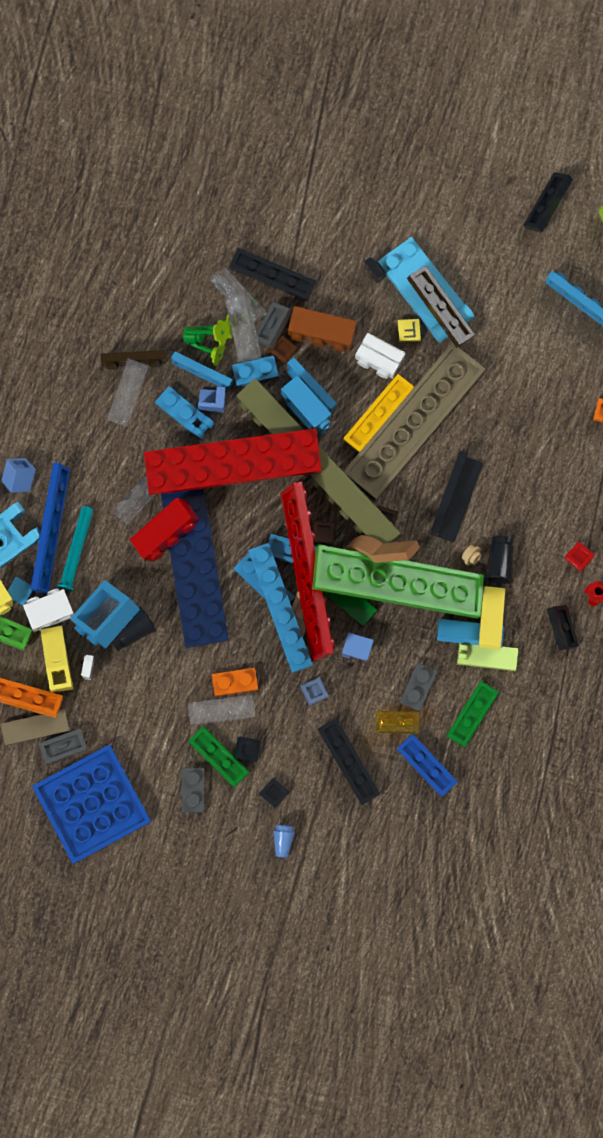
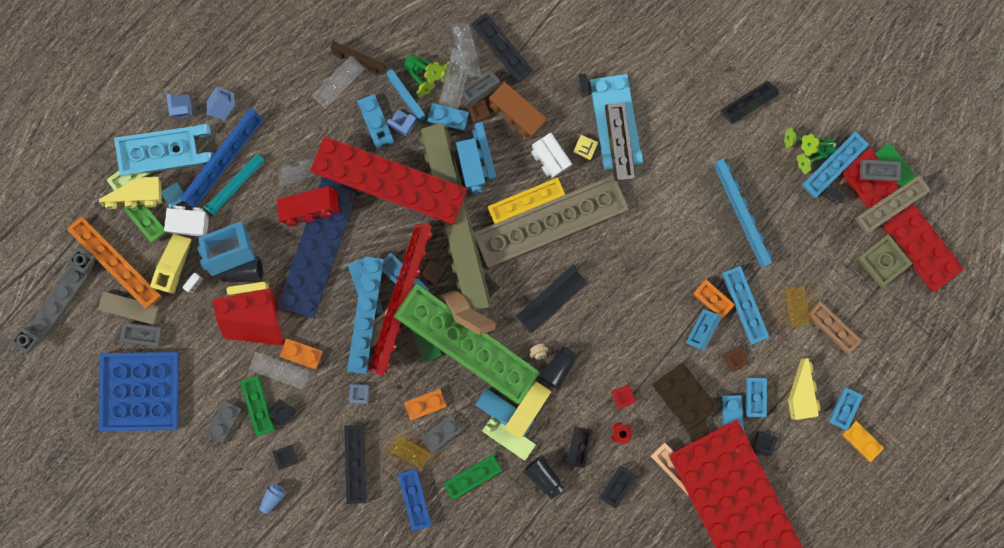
camera: 25 degrees right, 5 degrees up
(146, 644) = (240, 289): none -> light yellow tile
(164, 672) = (249, 317): none -> red wedge
(357, 647) = (409, 378): medium blue panel -> none
(386, 667) = (425, 404): none -> orange plate
(543, 675) = (544, 477): none -> black plant

